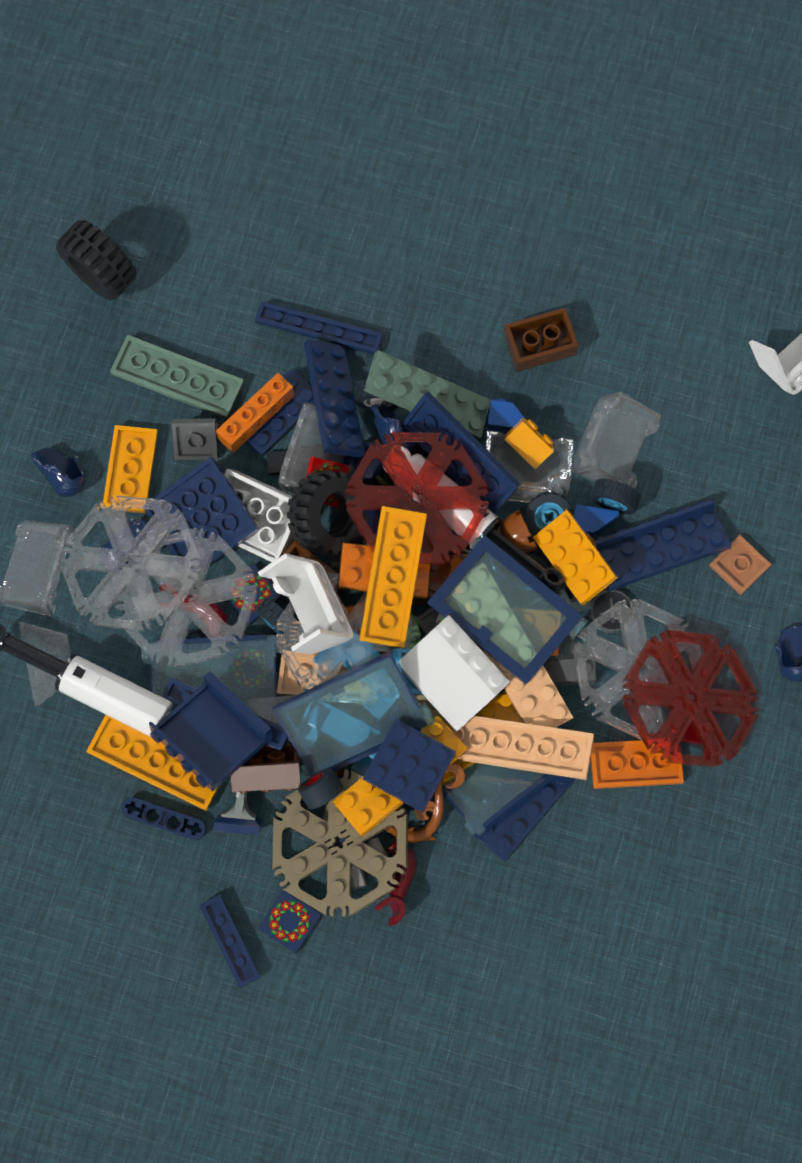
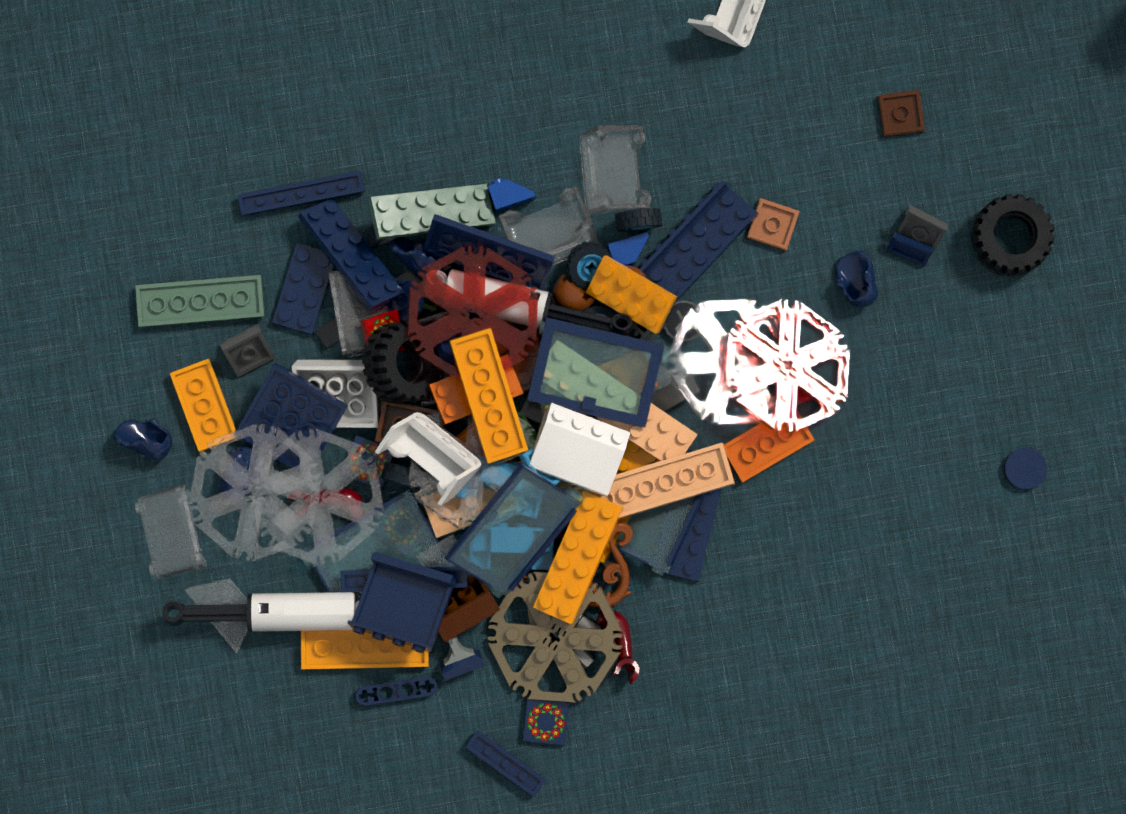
camera: 30 degrees left, 10 degrees up
(96, 259) = (74, 234): black tyre -> none
(255, 413) = (289, 302): orange brick -> none
(320, 788) = (517, 601): black wheel -> none
(409, 765) = (582, 547): dark blue plate -> none
(529, 442) = (541, 209): light orange brick -> none
(540, 339) = (503, 107): reddish brown brick -> none

